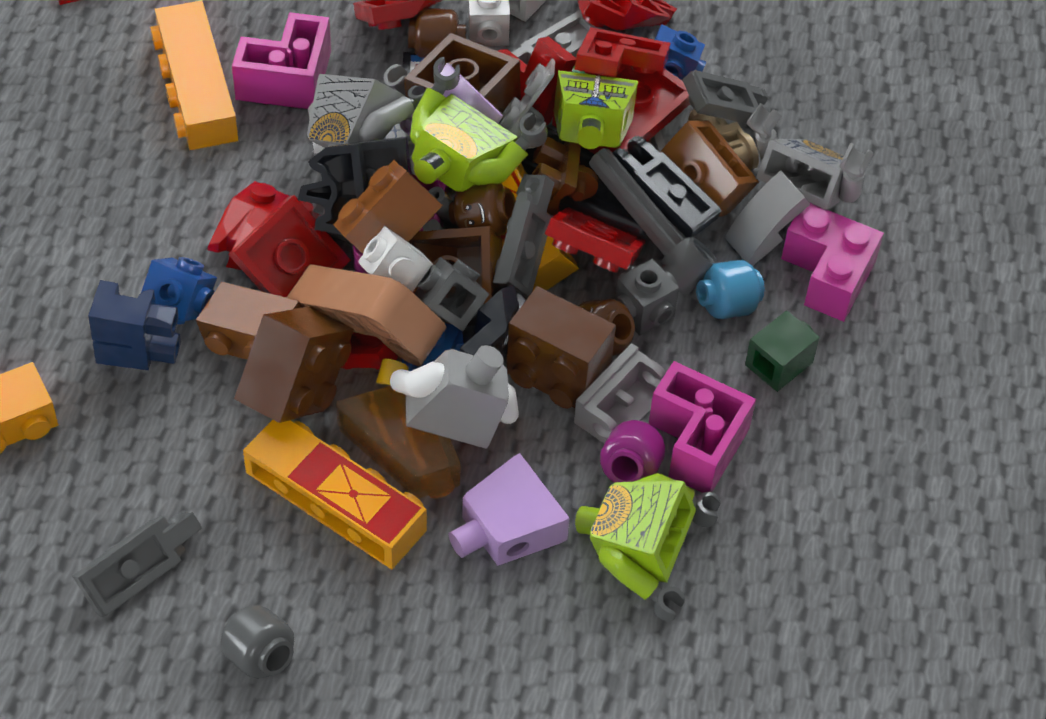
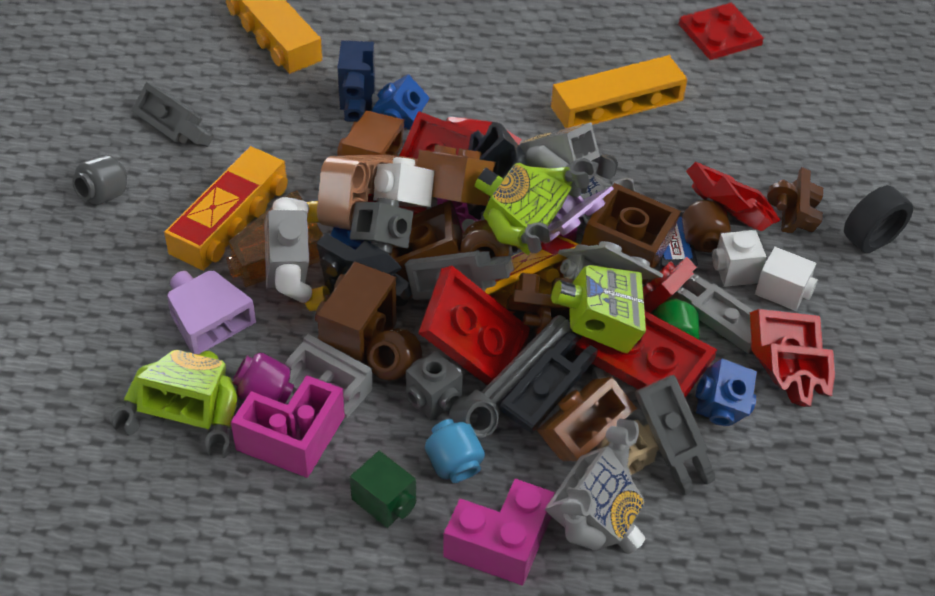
camera: 85 degrees right, 5 degrees down
(284, 69) = (642, 141): dark pink brick -> none
(294, 364) = (308, 144): reddish brown brick -> none
(607, 50) = (693, 318): red plate -> none
(758, 224) = (539, 468): light grey slope -> none

